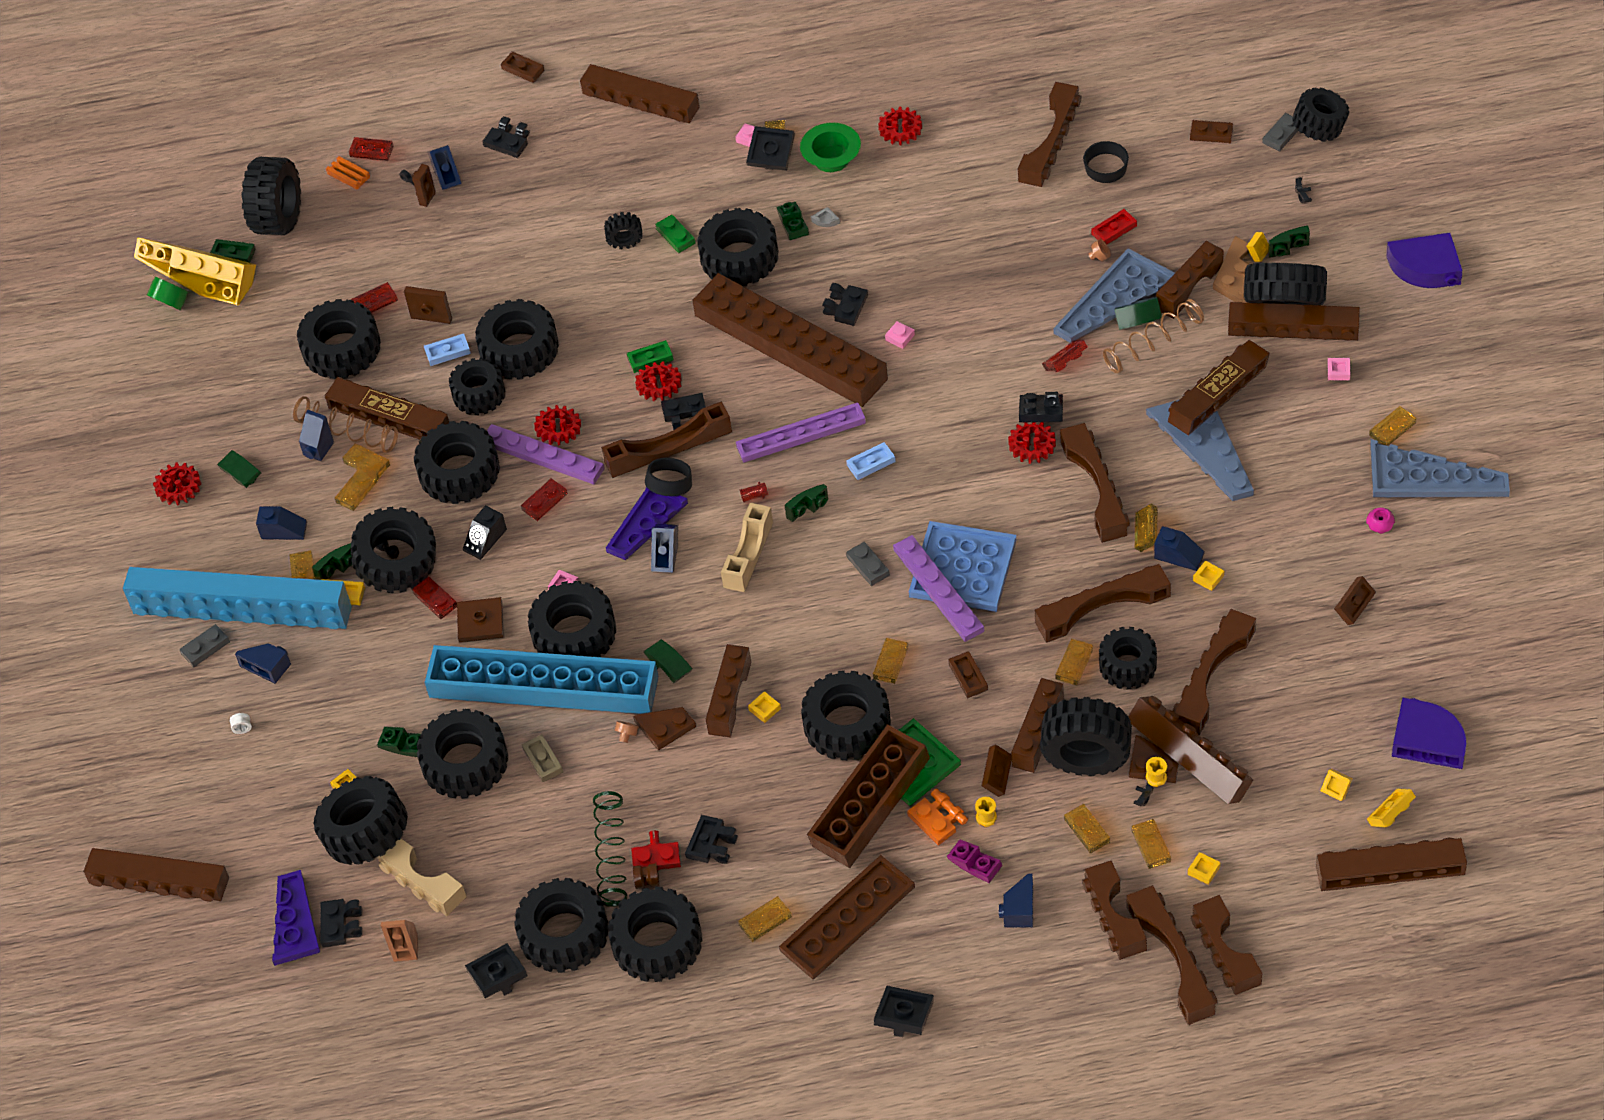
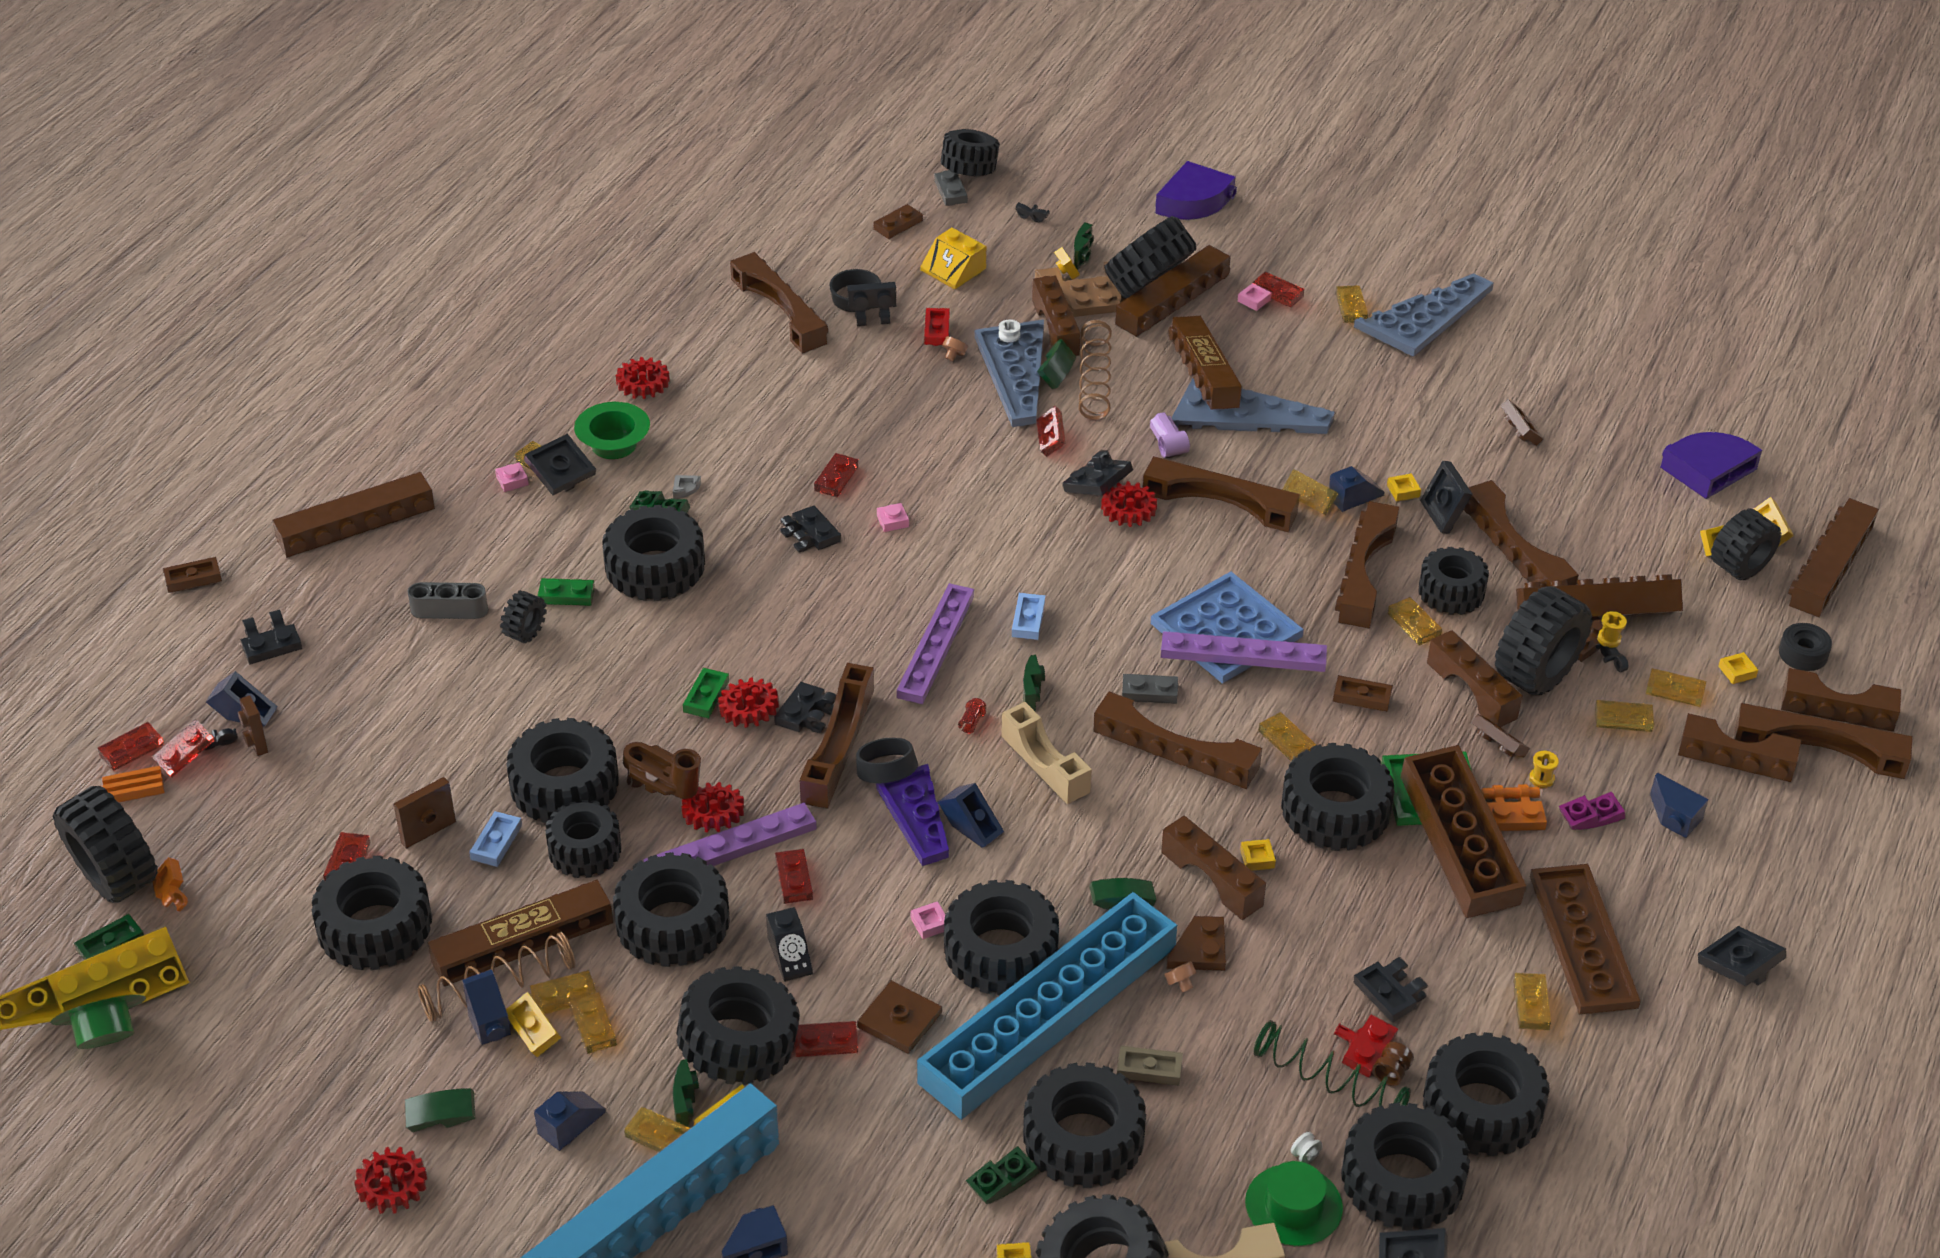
camera: 60 degrees left, 10 degrees down
(292, 241) = (168, 883): none -> orange plate
(328, 464) = (532, 1024): none -> yellow plate
(388, 170) = (183, 748): none -> clear red plate
(499, 889) = (1297, 1201): none -> green hose
(543, 871) = (1306, 1147): none -> white bush
(553, 380) = (661, 770): none -> reddish brown piece
(610, 188) = (447, 600): none -> dark grey beam
(790, 340) = (811, 585): reddish brown brick -> none
(835, 644) = (1229, 761): none -> reddish brown arch
(911, 280) = (836, 475): none -> clear red plate
(1090, 175) = (872, 296): none -> black plate
(1125, 422) = (1170, 439): none -> lavender piece
(1141, 271) = (1009, 330): none -> white bush
(1195, 187) = (954, 258): none -> yellow slope
(1208, 608) = (1446, 497): none -> black hinge
(1268, 909) = (1806, 635): none -> black tyre
(1331, 801) = (1746, 544): none -> black tyre
(1362, 376) = (1281, 290): none -> clear red plate
(1383, 525) = (1444, 364): dark pink plate -> none

